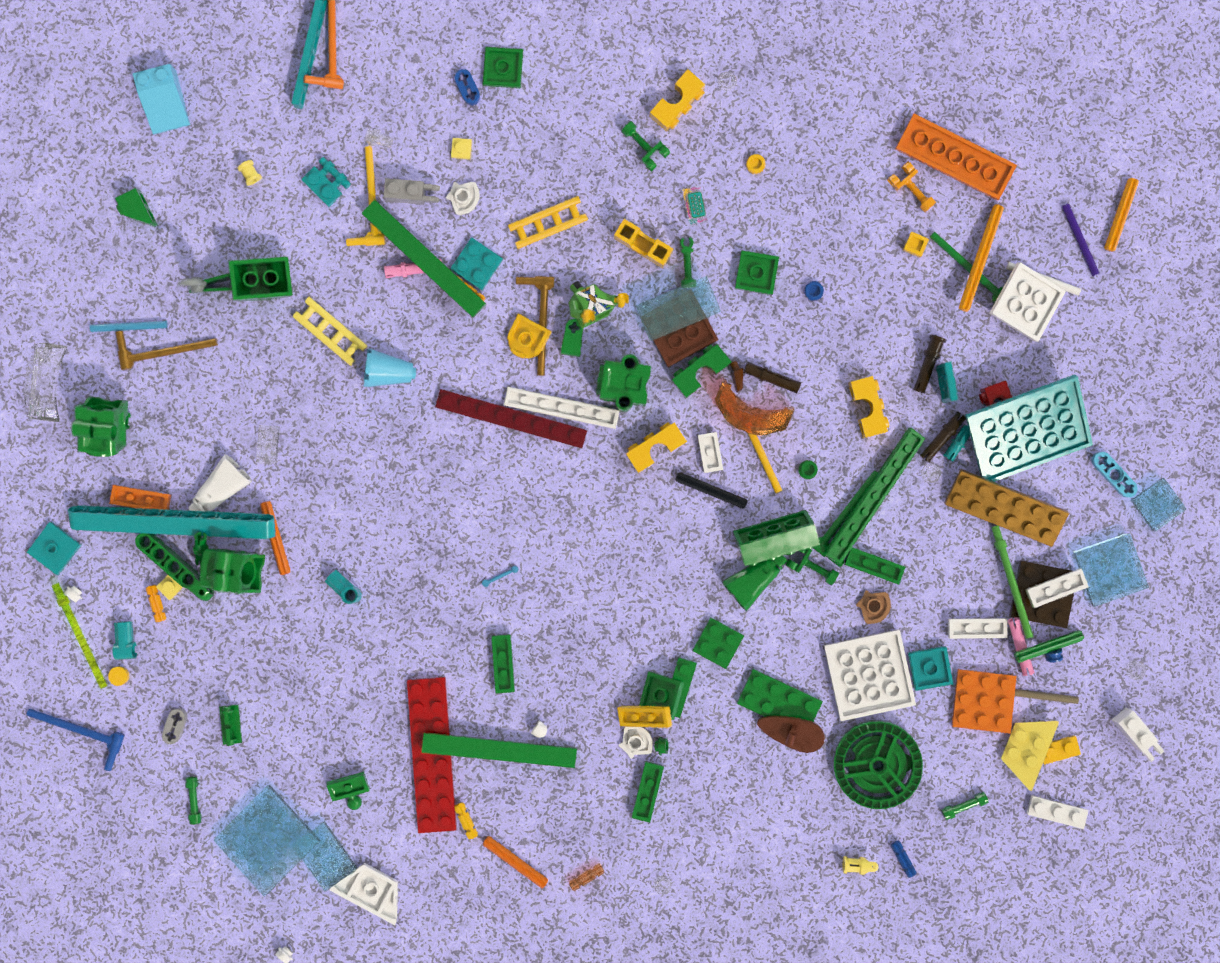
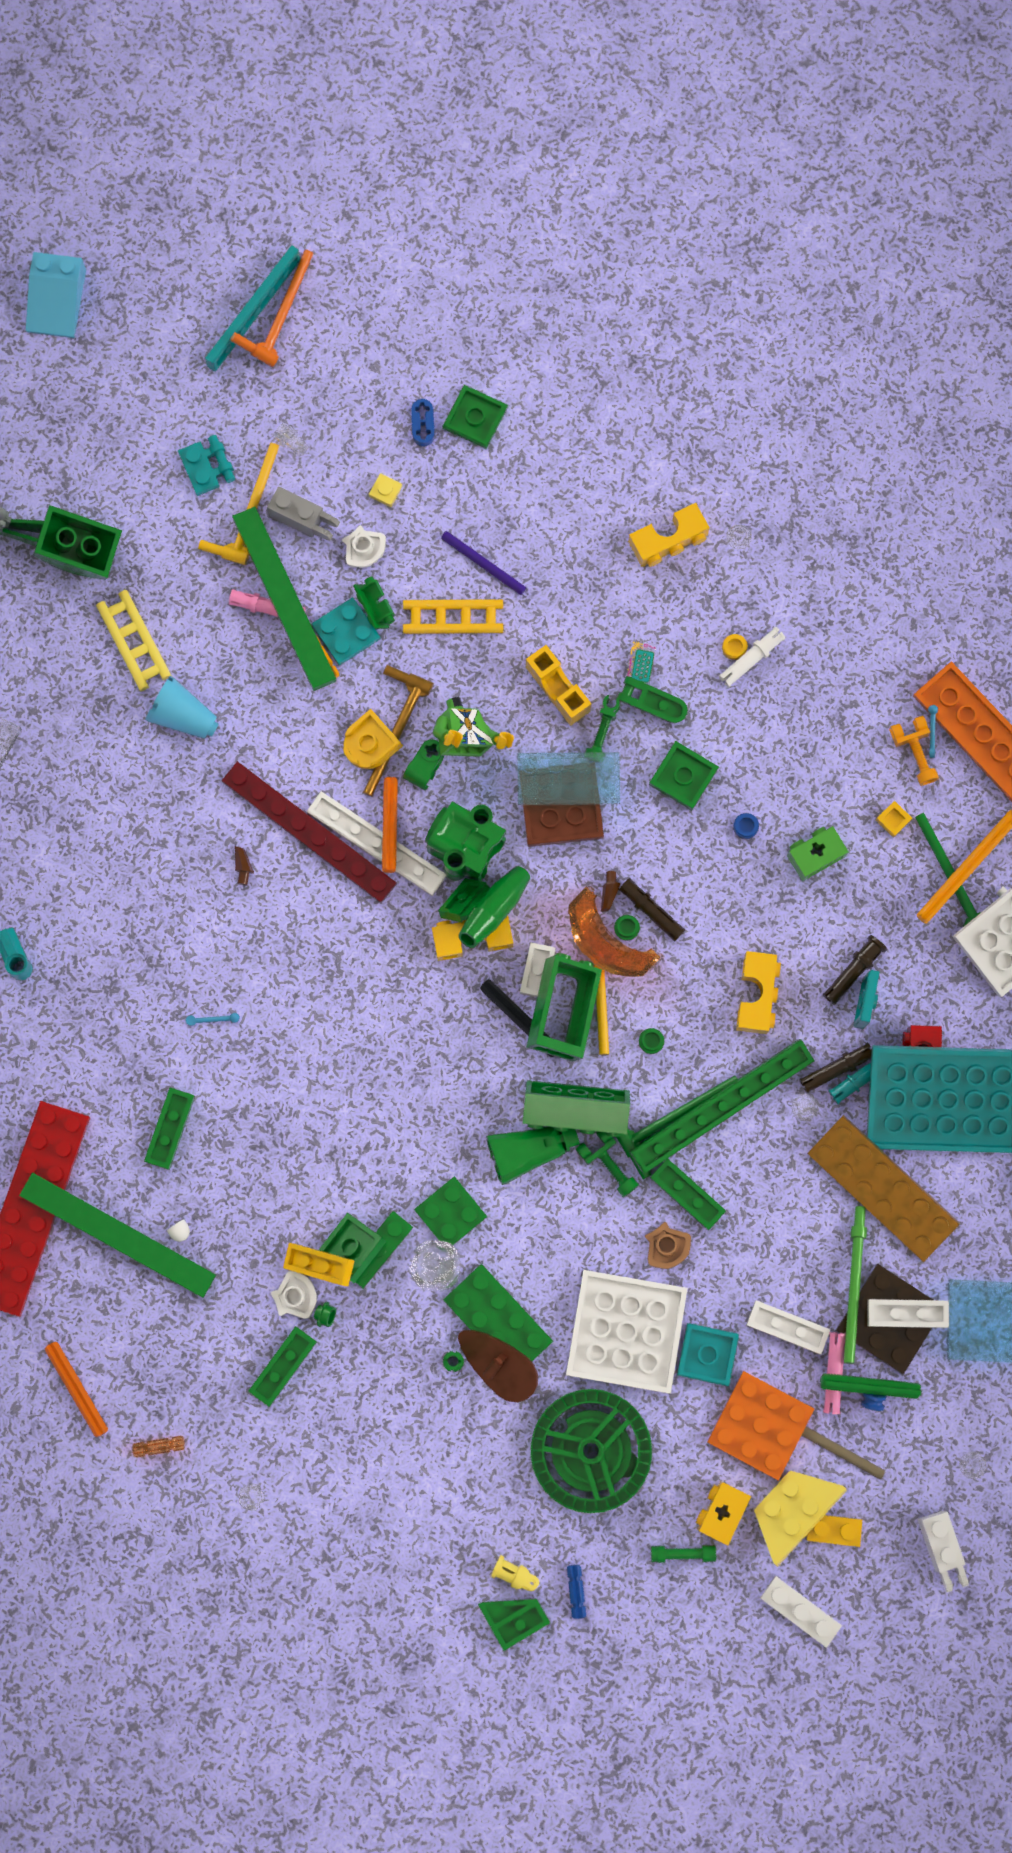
camera: 25 degrees right, 10 degrees down
(249, 172) = (119, 418): light yellow bush -> none
(466, 820) = (36, 1310): yellow axle -> none
(475, 461) = (242, 866): none -> reddish brown bar
(495, 242) = (368, 594): none -> green hinge
(553, 174) = (483, 563): none -> dark purple bar
(566, 391) = (389, 842): none -> orange axle
(630, 130) = (597, 546): green bar -> none
(656, 423) = (484, 905): none -> green plate
(686, 380) = (586, 856): green arch -> none
(715, 227) = (653, 701): none -> green plate
(723, 685) = (435, 1265): none -> clear cone
(752, 469) = (582, 1009): none -> green piece
(759, 397) = (627, 927): none -> green plate
(760, 744) = (452, 1354): none -> green pin
(775, 159) = (751, 657): none -> white pin
(869, 894) = (514, 1619): none -> green wing
(881, 285) = (808, 864): none -> bright green brick
(914, 154) = (933, 709): none -> dark azure hinge
(986, 778) = (736, 1503): none -> yellow brick

